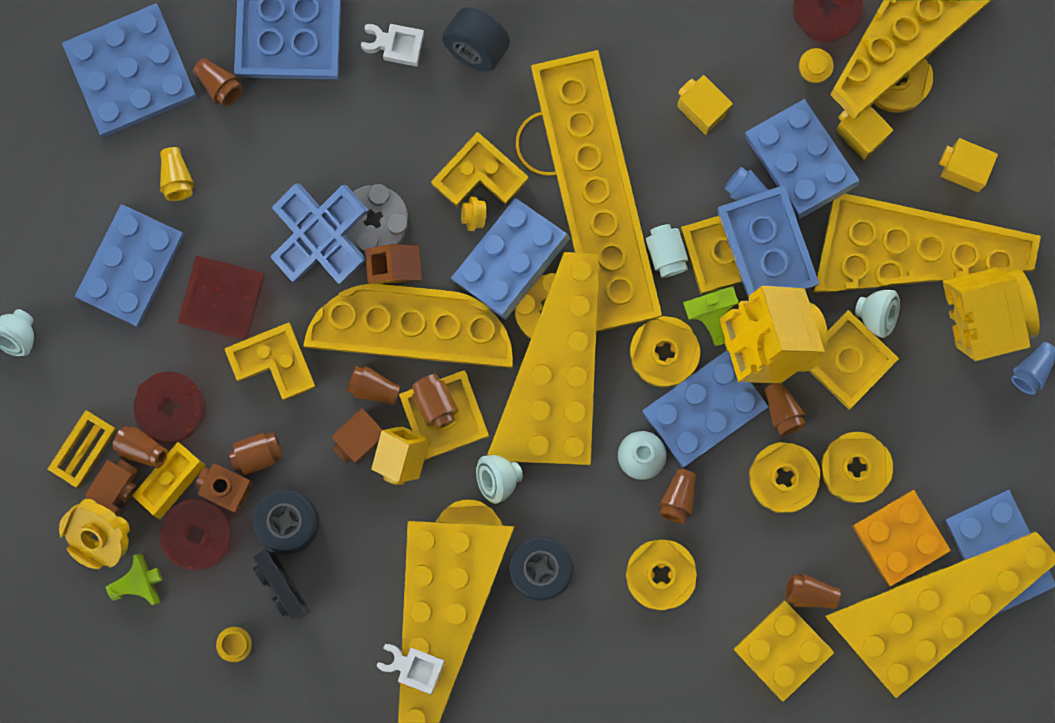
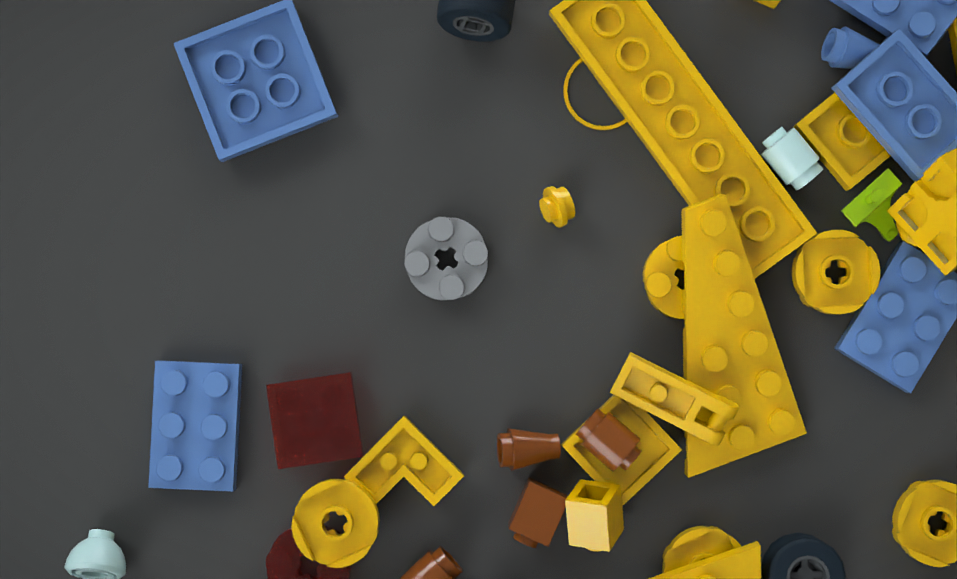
camera: 20 degrees left, 5 degrees up
(129, 70) = (97, 204): medium blue plate -> none
(175, 177) = (203, 305): yellow cone -> none
(218, 391) = (327, 546): none -> yellow plate
(219, 83) = (207, 177): dark orange cone -> none
(319, 233) = (395, 302): medium blue plate -> none
(393, 264) = (493, 303): dark orange brick -> none
(399, 44) = (392, 48): white plate -> none
(411, 325) = (539, 362): yellow plate -> none
(478, 164) = (541, 145): yellow plate -> none
(496, 390) = (673, 398): none -> yellow plate
(497, 477) = (711, 492): light aqua brick -> none
(510, 258) = (620, 239): medium blue plate -> none
(642, 455) = (856, 397): light aqua brick -> none
(679, 497) = (920, 428): dark orange cone -> none

